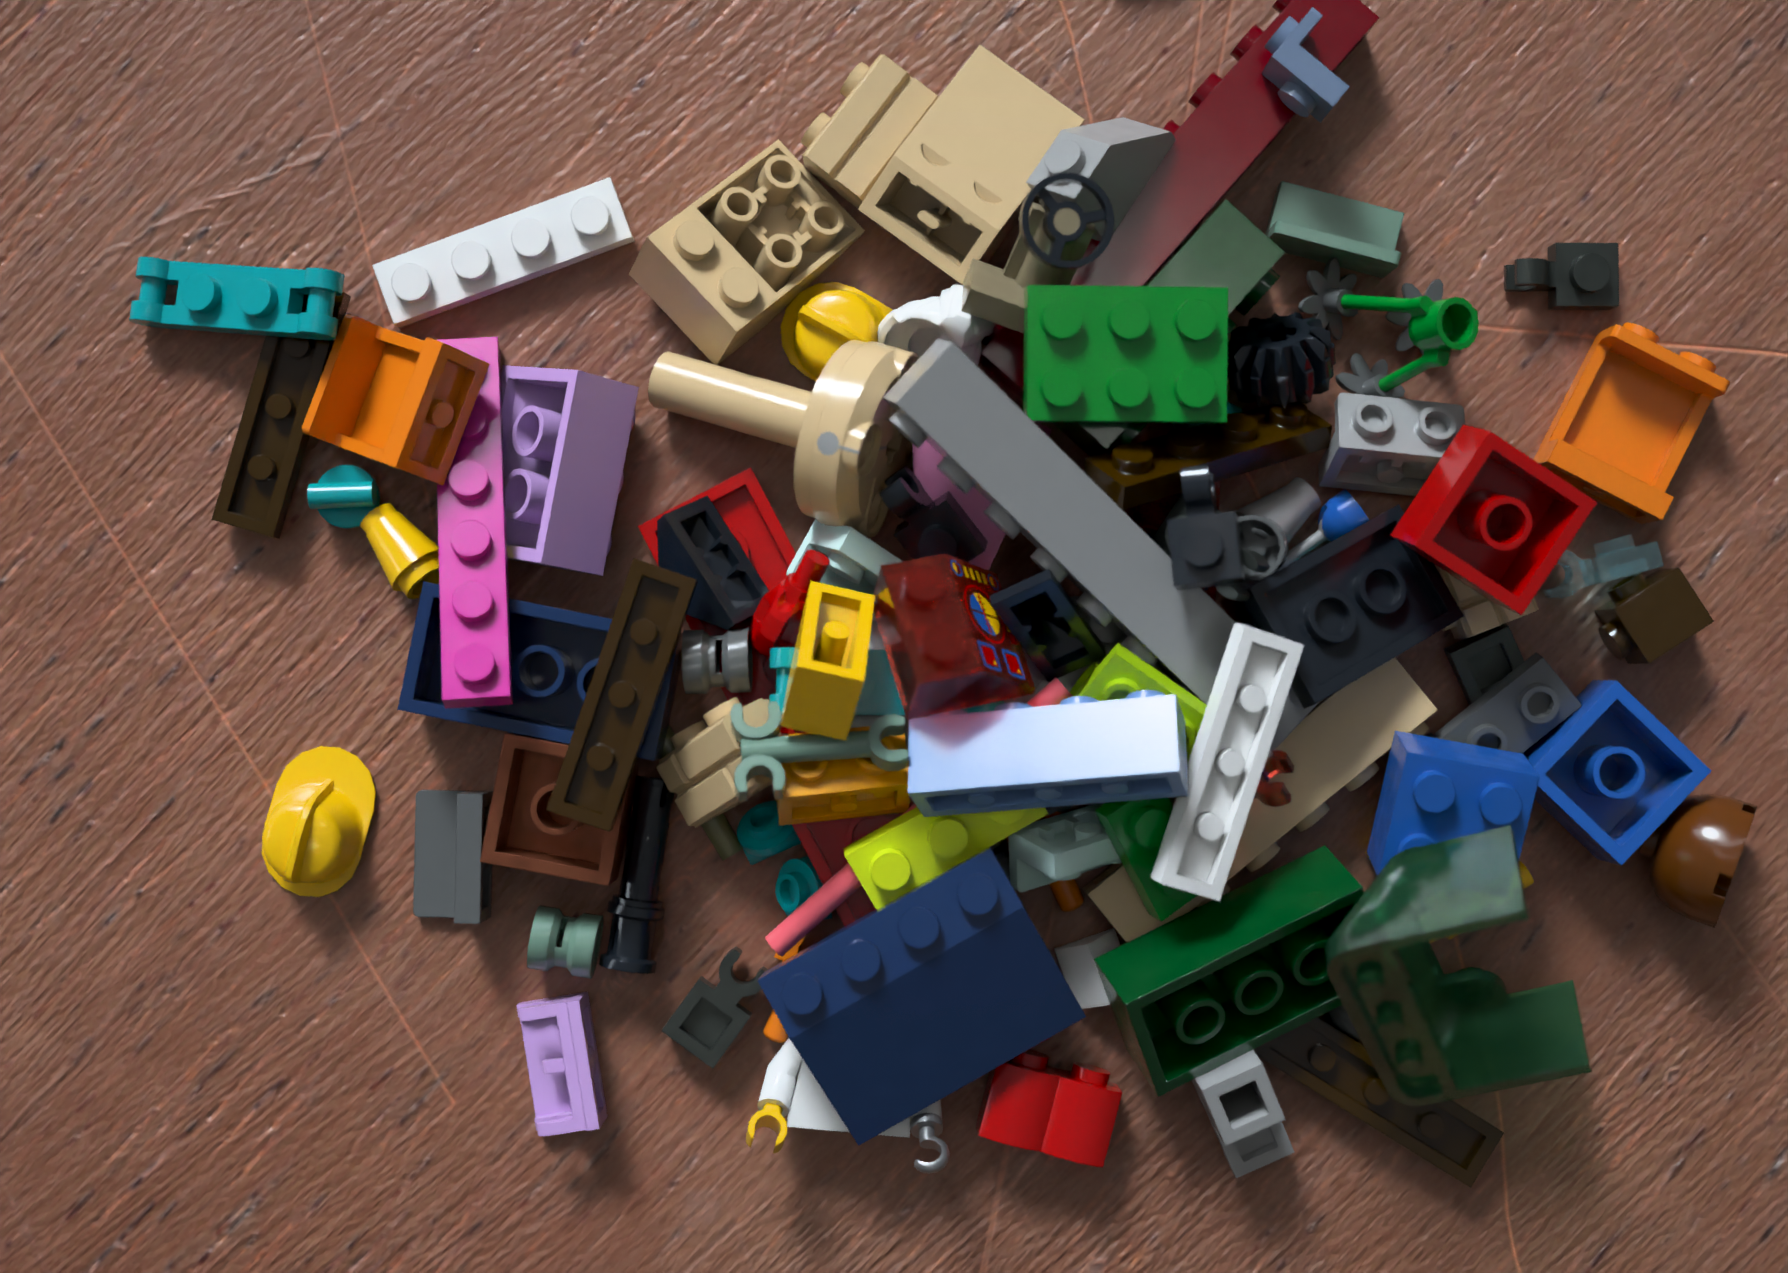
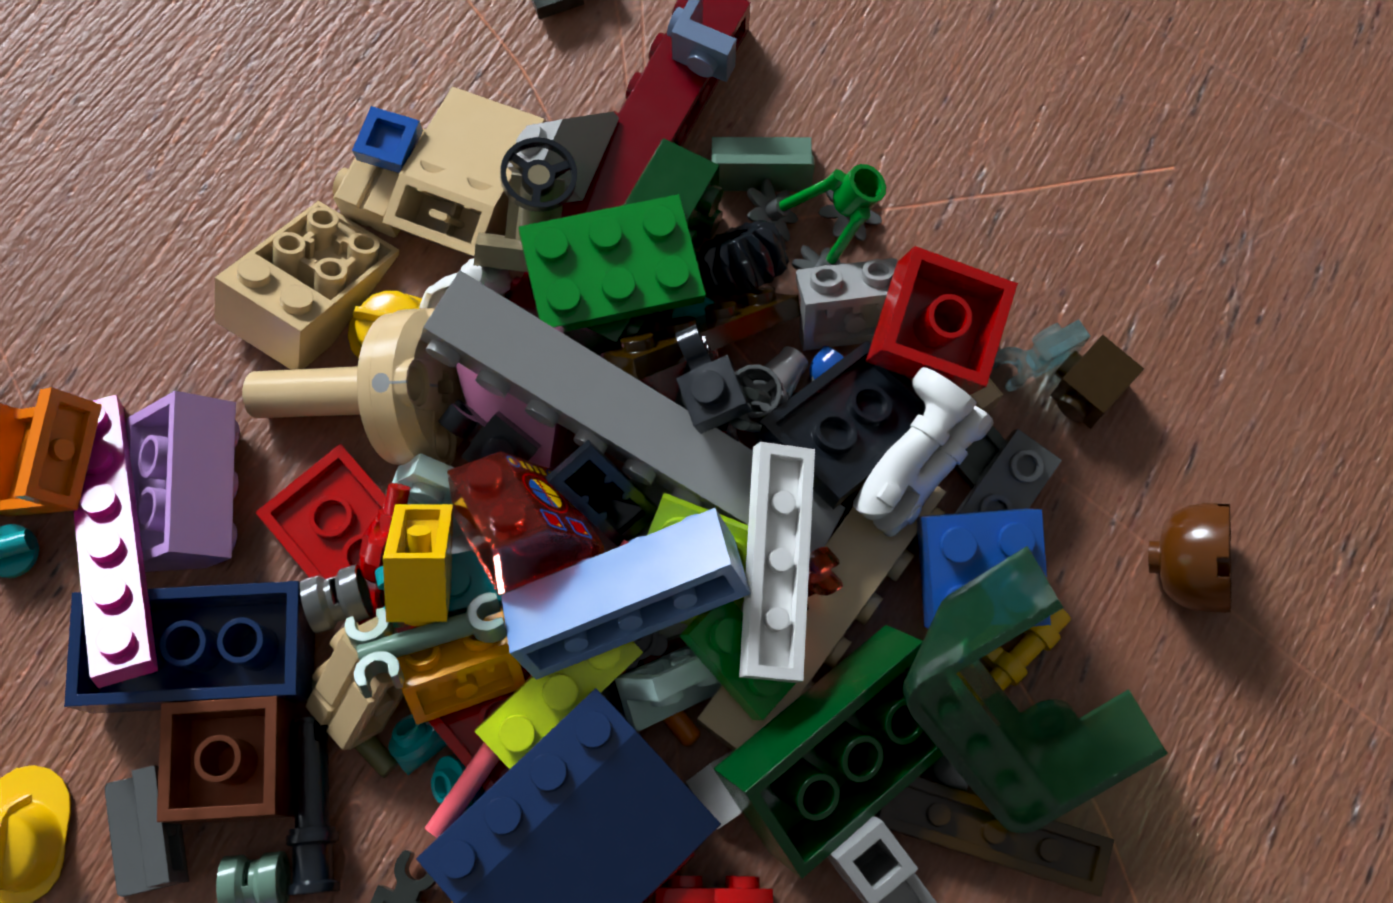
camera: 15 degrees left, 15 degrees down
(402, 550) = (54, 578): yellow cone -> none
(503, 253) = (114, 331): white plate -> none
(622, 695) = (254, 643): dark brown plate -> none
(703, 548) = (312, 526): black slope -> none
(887, 104) = (387, 139): none -> blue plate
(1419, 677) = (923, 455): none -> white piece
(1574, 275) = (953, 151): pearl dark grey plate -> none
(1612, 772) = (1104, 508): blue brick -> none
(1629, 420) = (1034, 237): orange panel -> none

